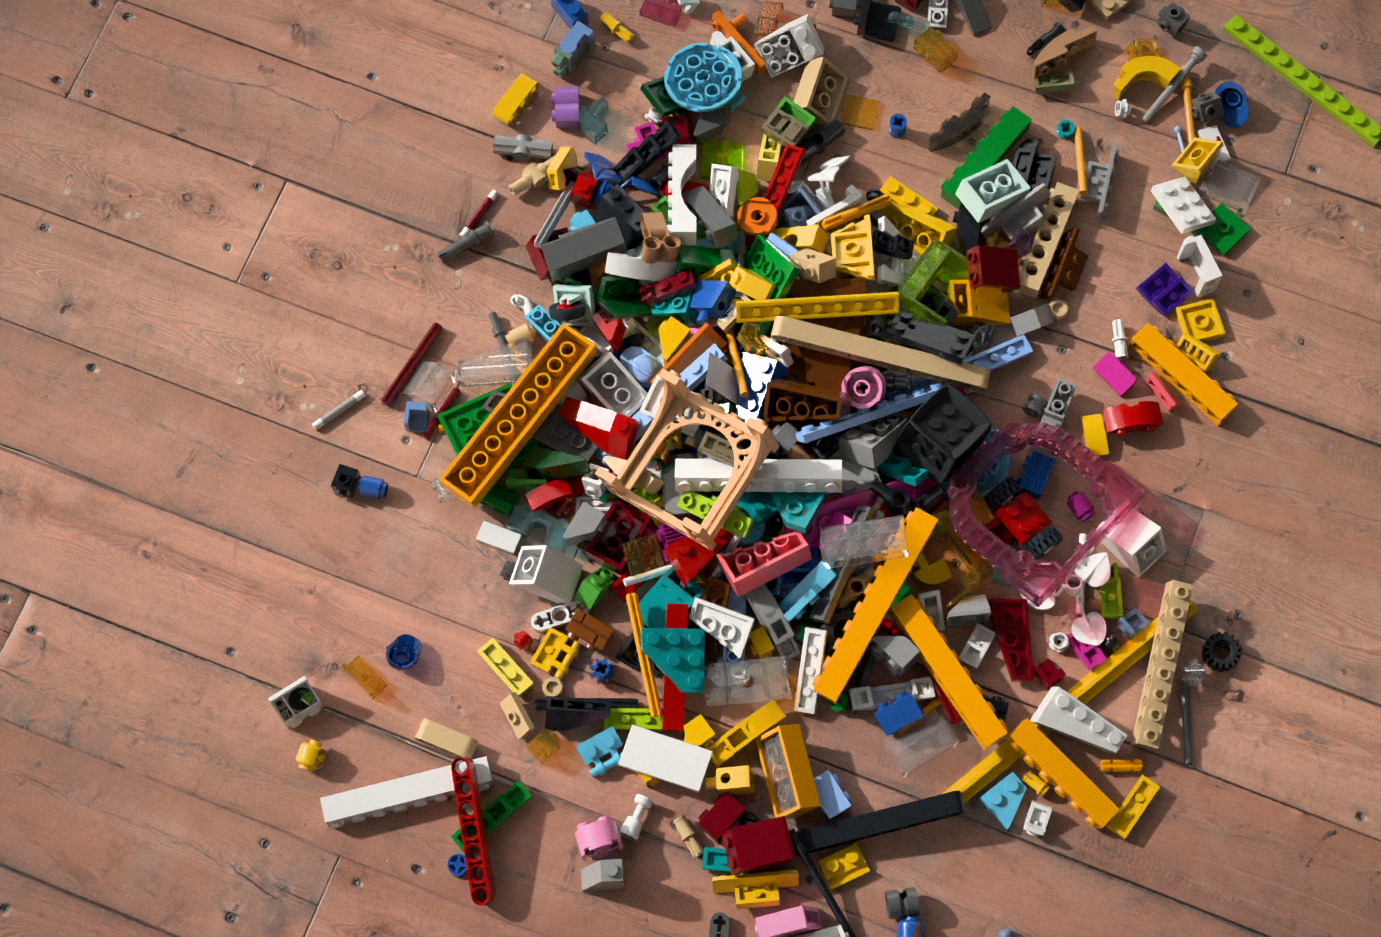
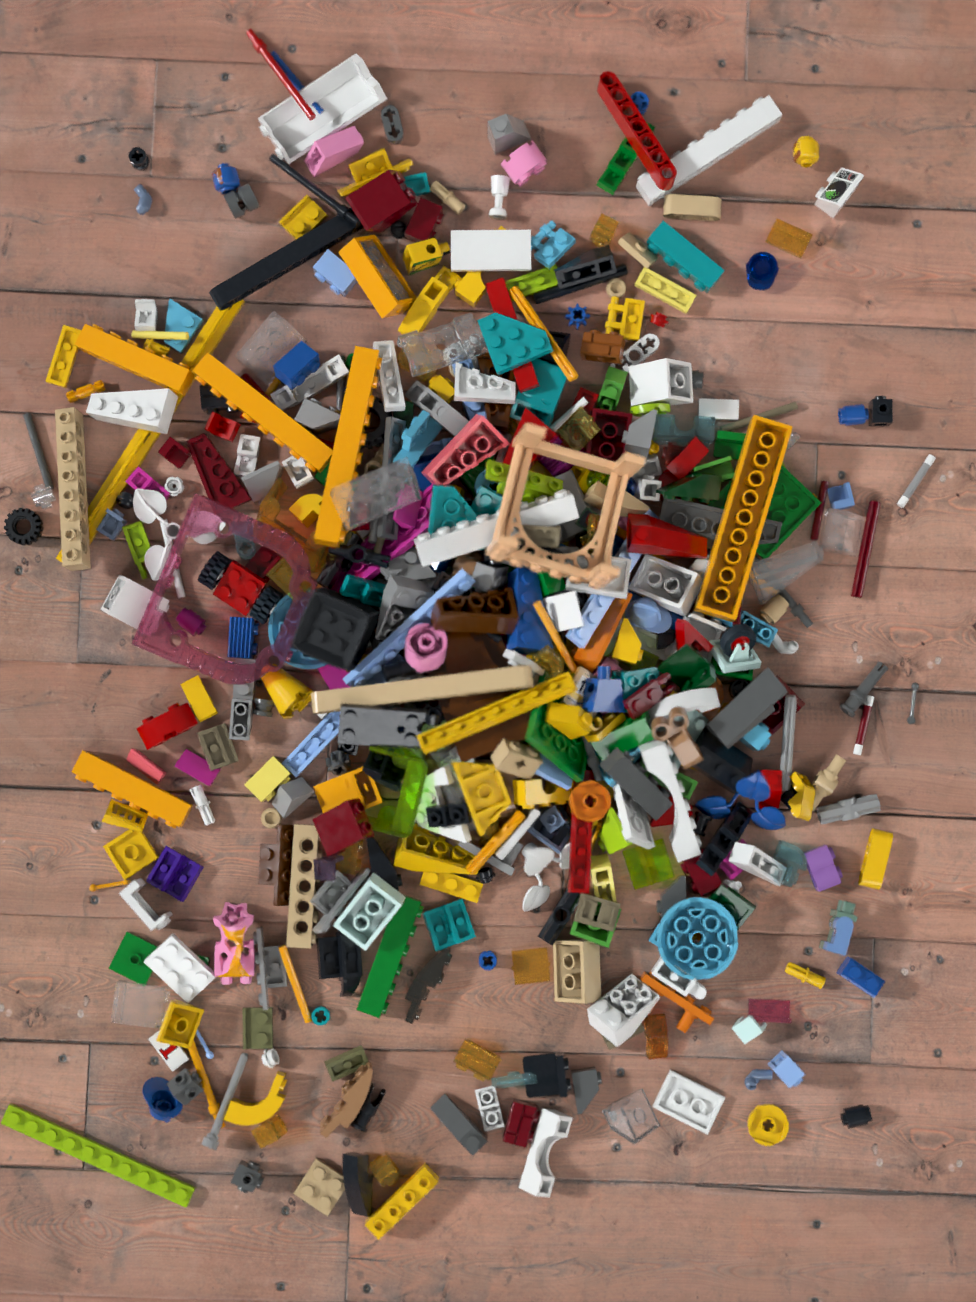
camera: 155 degrees right, 15 degrees up
(434, 205) = (911, 720): none -> dark grey hinge
(459, 517) = (767, 414): none -> dark tan bar
(473, 693) = (685, 257): none -> teal brick
(570, 550) = (662, 408): none -> lime tile
(625, 125) = (757, 863): none -> white slope
(922, 167) = (448, 924): none -> teal slope
(992, 680) = (222, 427): none -> red bracket
(1007, 407) = (286, 692): none -> yellow cone
(1027, 792) = (160, 335): none -> light yellow bar
(1050, 341) = (268, 779): none -> light yellow brick
(1090, 386) = (217, 747): none -> dark tan plate
(1127, 136) = (257, 1028): none -> olive plate
(1129, 200) = (237, 962): none -> bright pink hips
(1245, 302) = (93, 887): none -> light orange hinge

